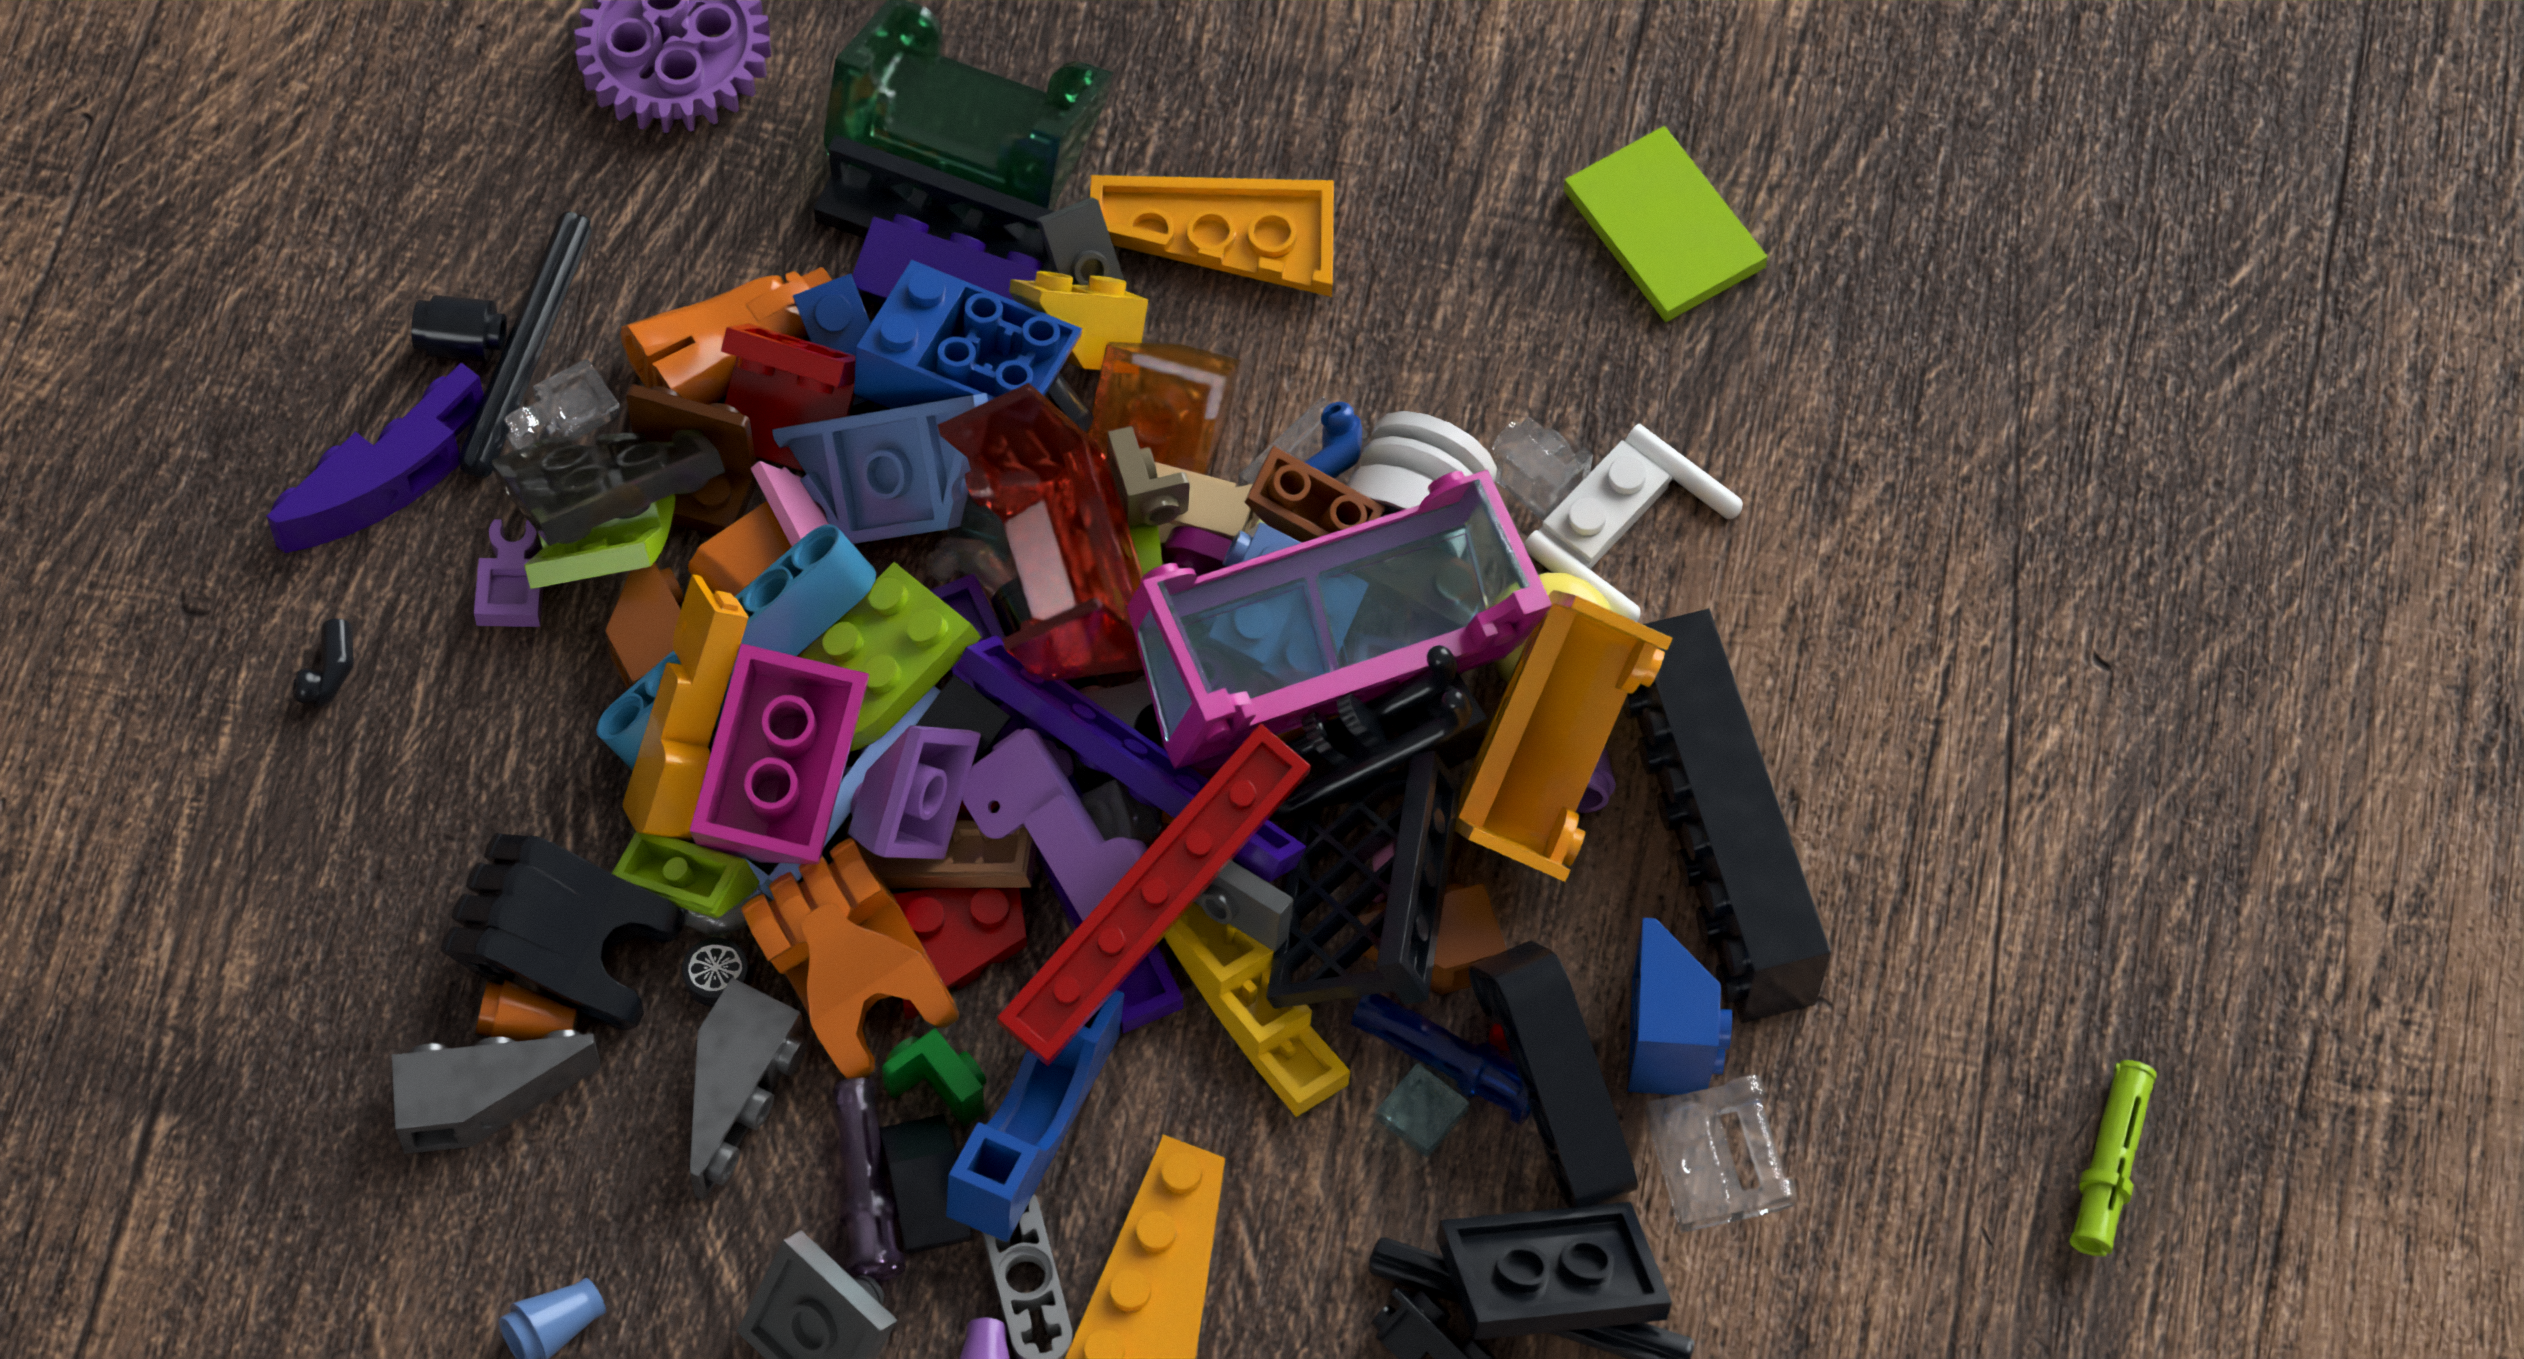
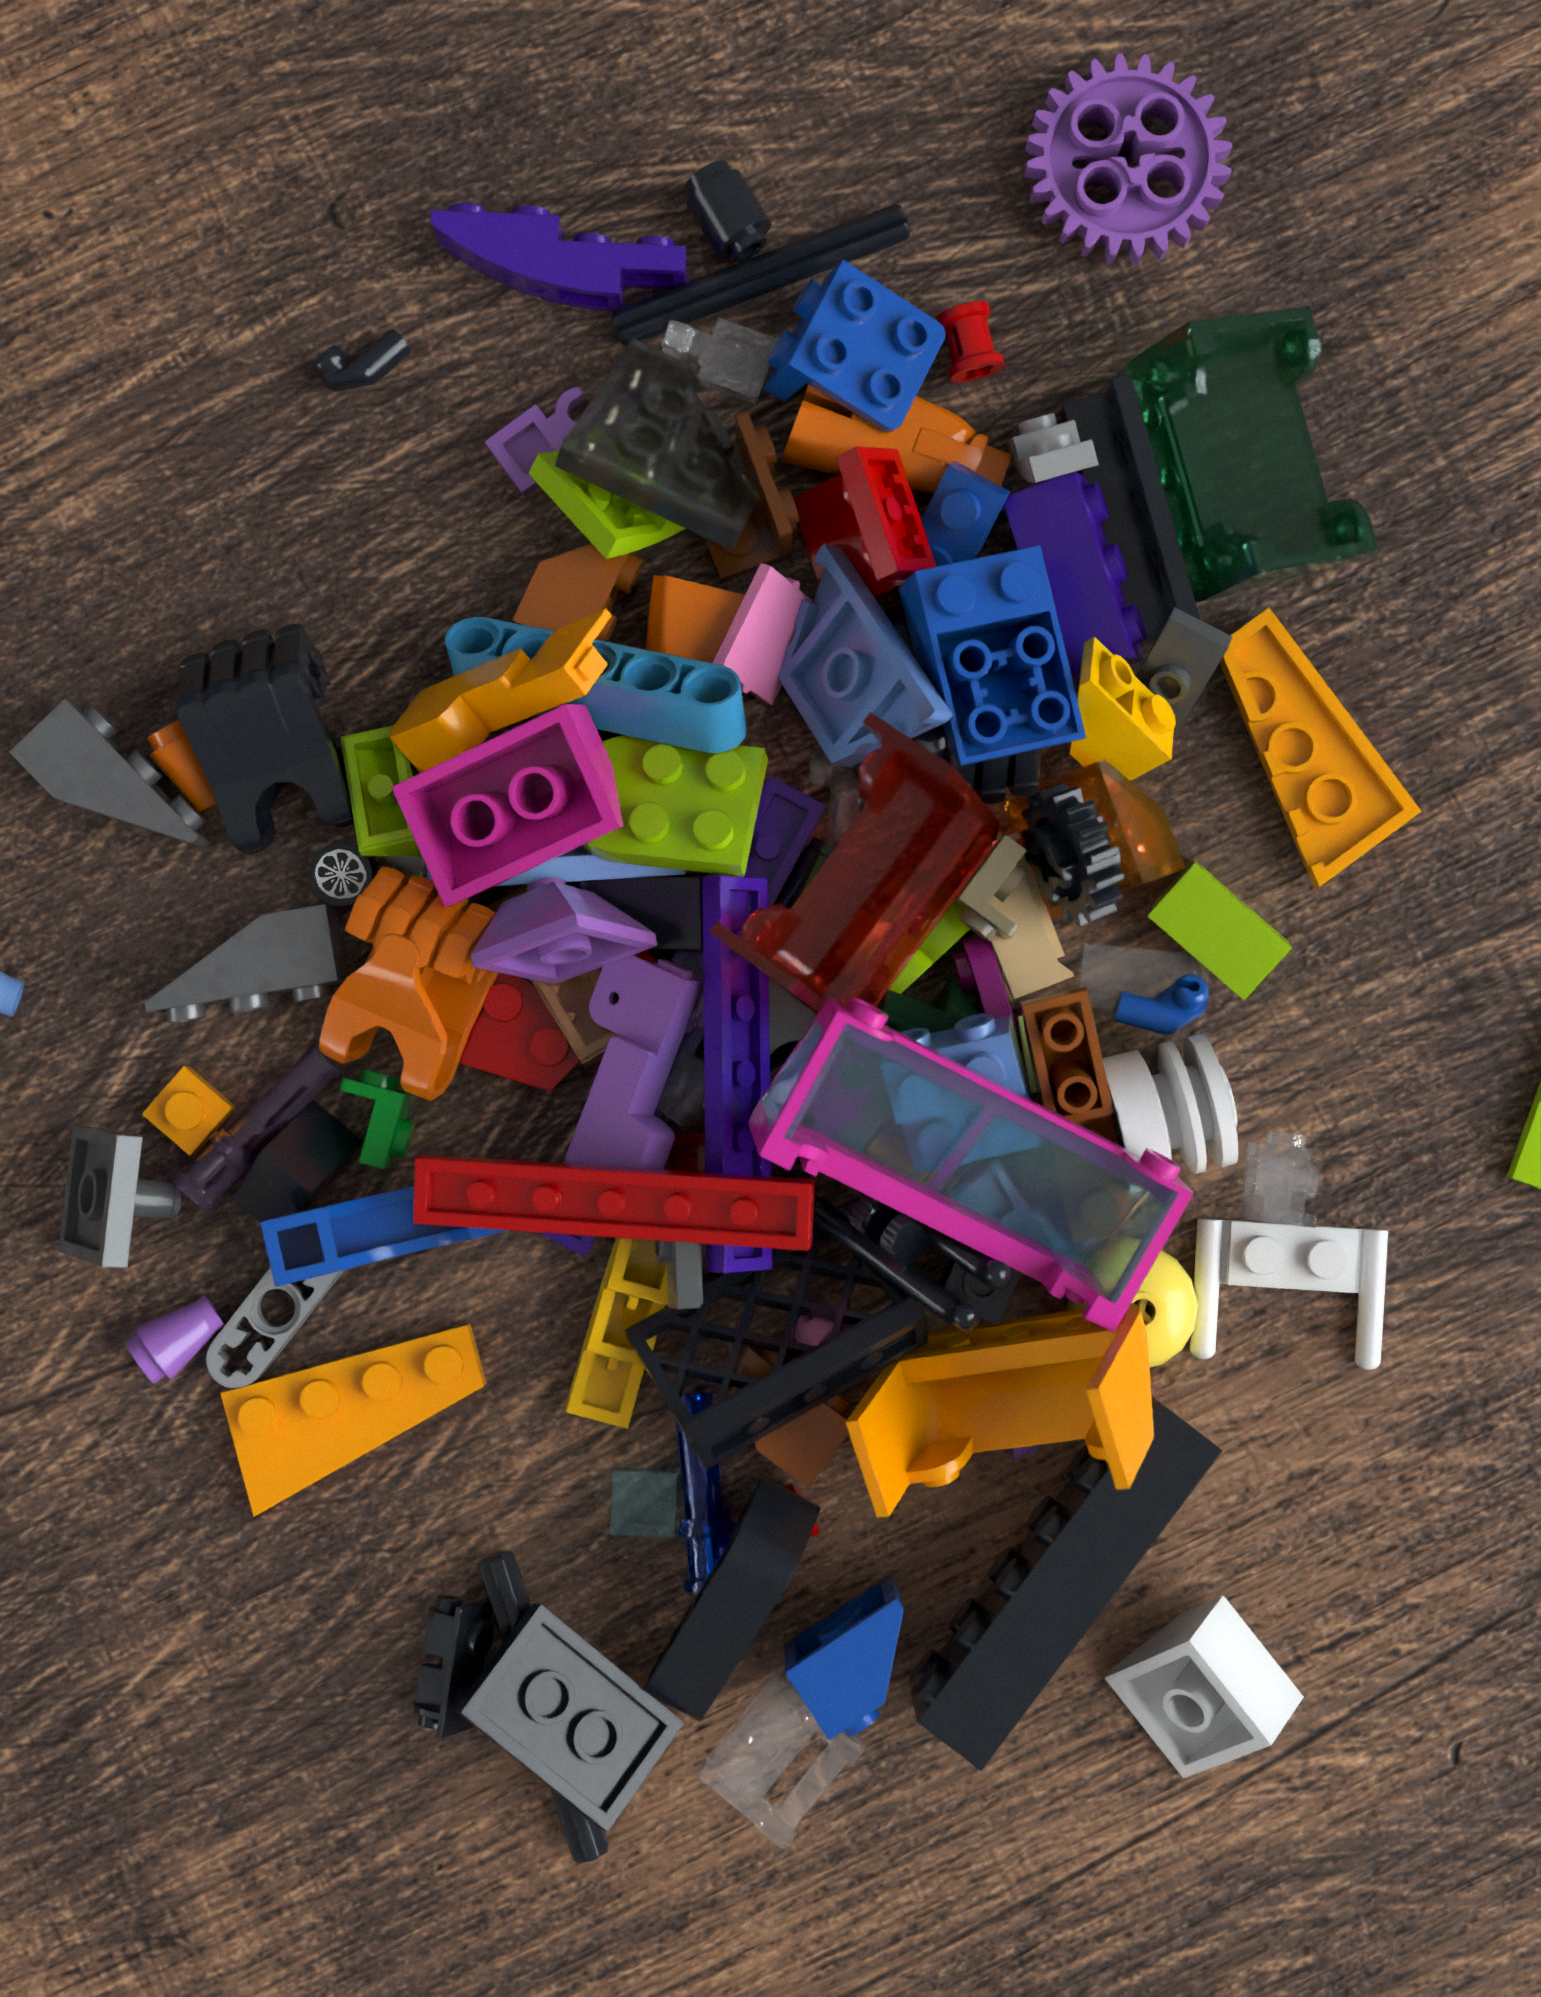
camera: 55 degrees right, 25 degrees up
(640, 300) = (856, 347): none -> blue bracket
(710, 236) = (970, 342): none -> red bush
(807, 1212) = (189, 1110): none -> light orange plate
(838, 234) = (1049, 449): none -> light grey slope
(1164, 403) = (1072, 854): none -> black gear
(1306, 369) = (1219, 929): none -> lime hinge
(1904, 793) = (1206, 1689): none -> white slope

